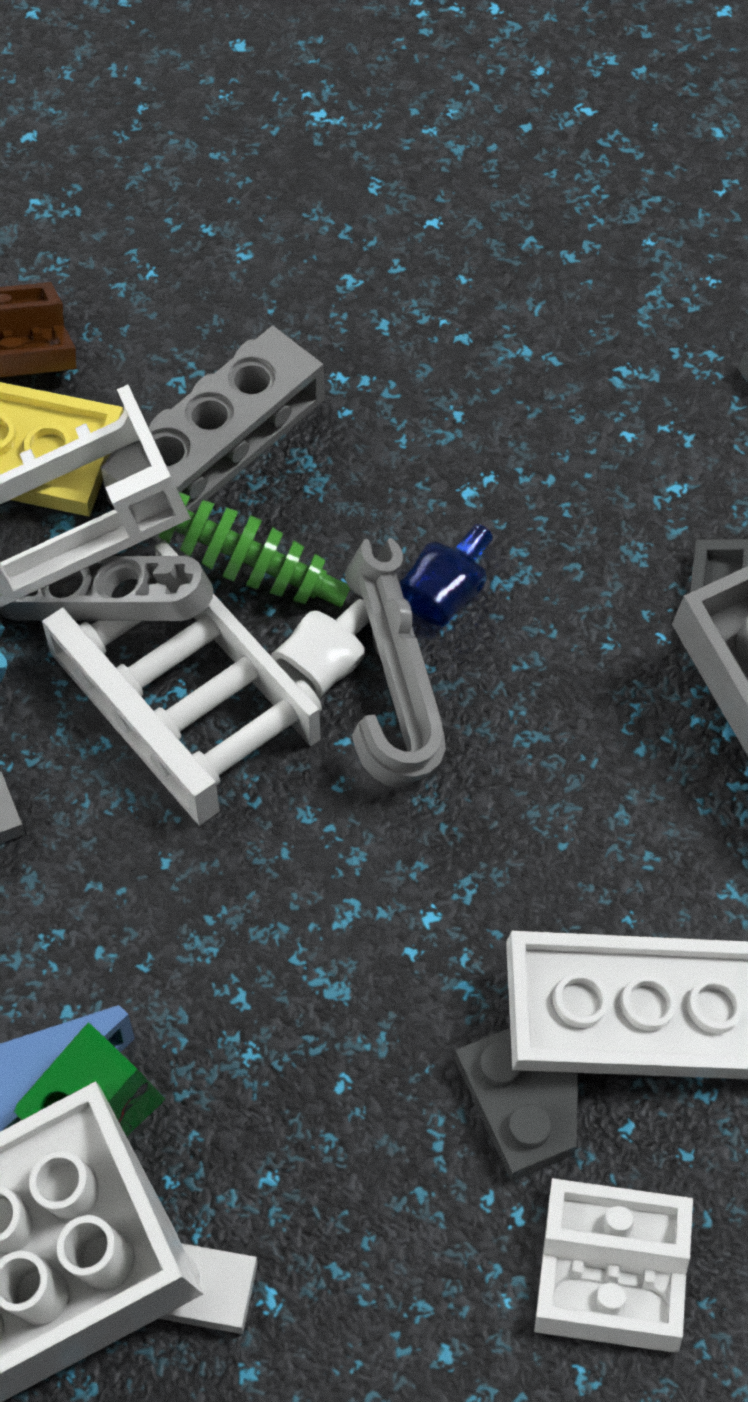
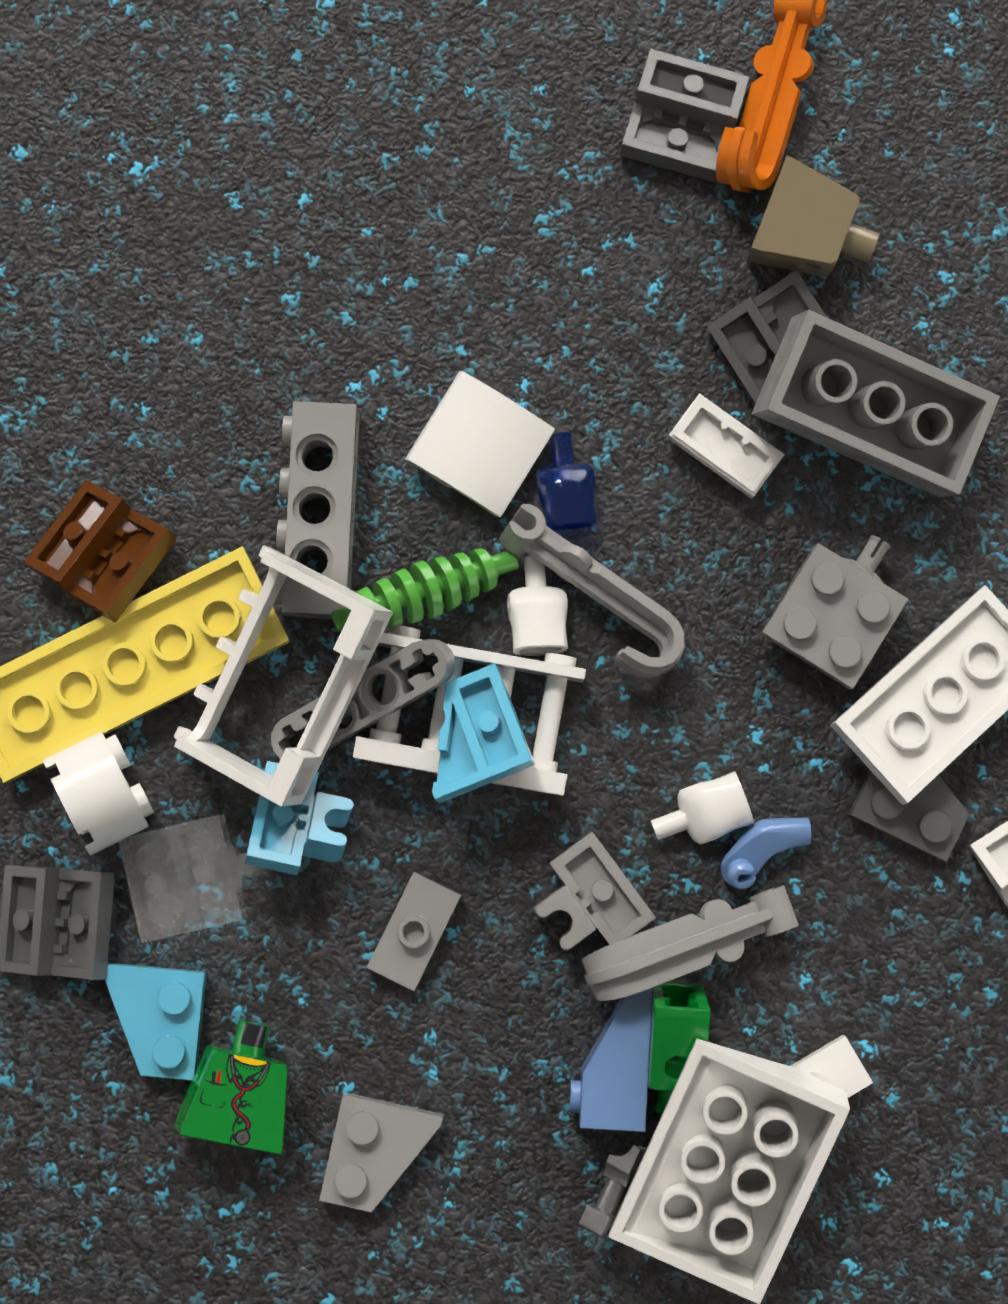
camera: 40 degrees left, 25 degrees up
(137, 924) = (594, 895): none -> light grey plate
(166, 682) = (479, 735): none -> medium azure wing
(183, 1020) = (685, 944): none -> light grey piece
(320, 938) = (707, 810): none -> white piece
(342, 1004) = (759, 845): none -> medium blue arm
(404, 484) = (480, 443): none -> white slope
(605, 855) = (836, 612): none -> light grey plate
(626, 645) = (725, 446): none -> white plate

